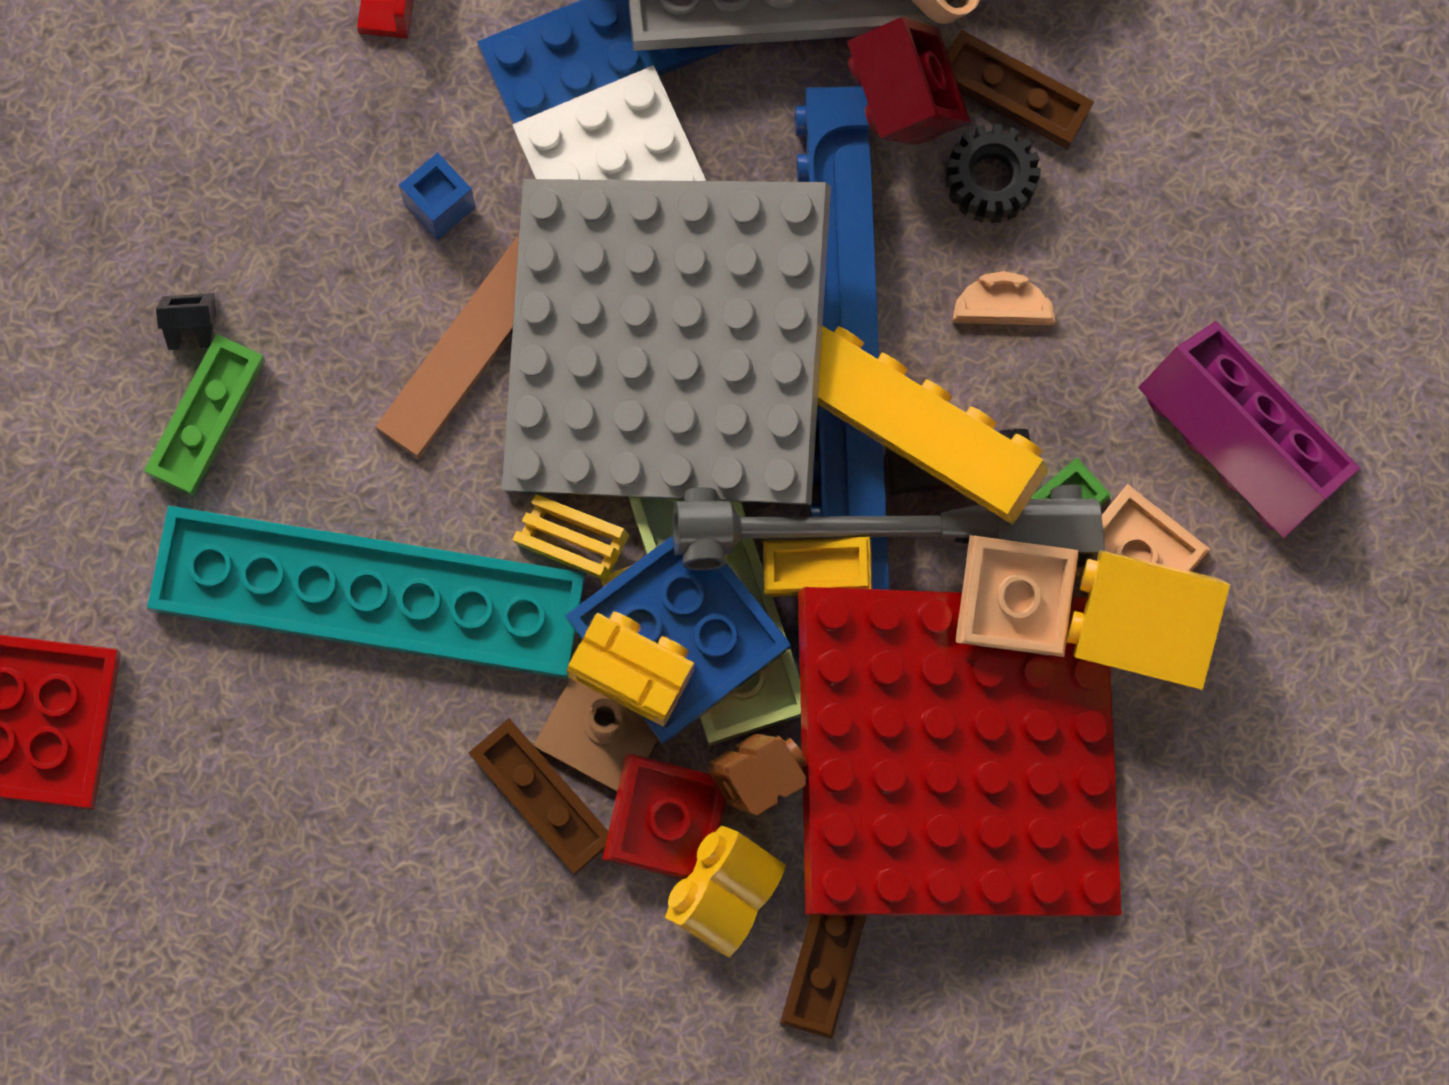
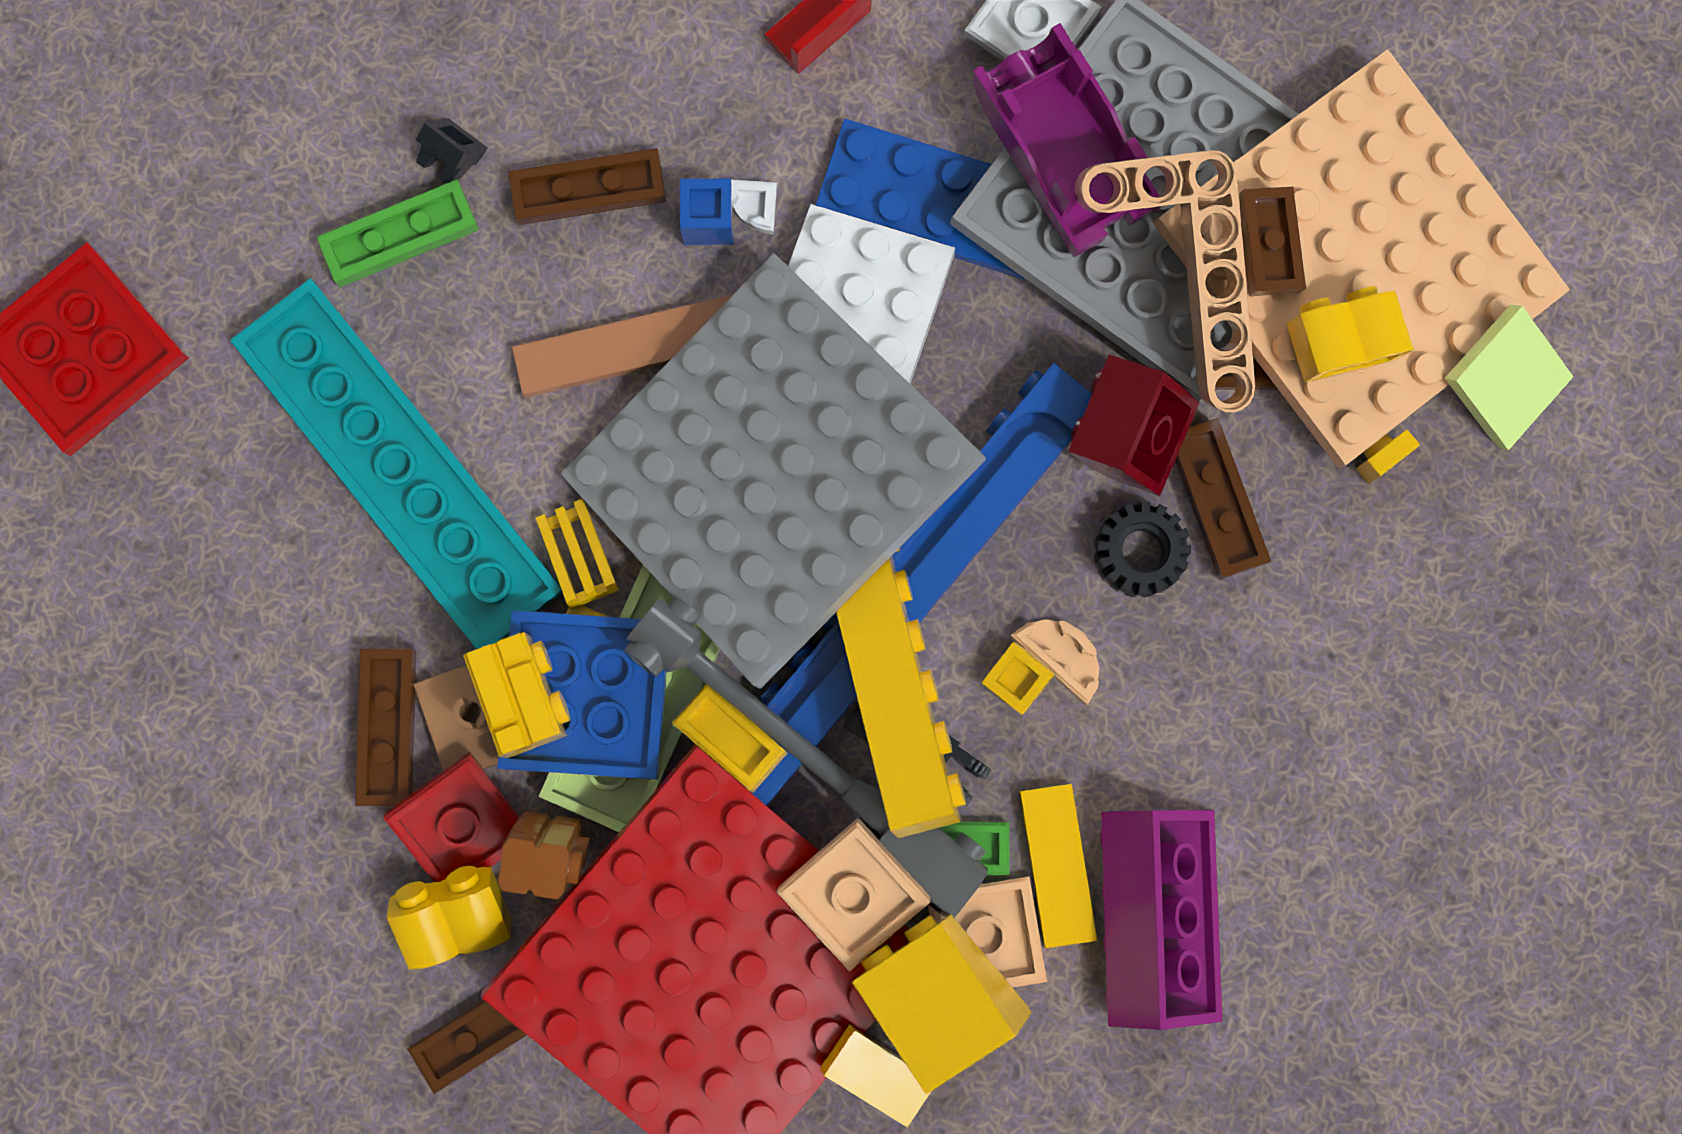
camera: 45 degrees right, 5 degrees up
(323, 256) = (587, 186): none -> reddish brown plate
(470, 161) = (755, 204): none -> white tile
(988, 344) = (1018, 678): none -> yellow plate
(1140, 458) = (1058, 866): none -> yellow tile
(1151, 724) = (874, 1076): none -> yellow tile

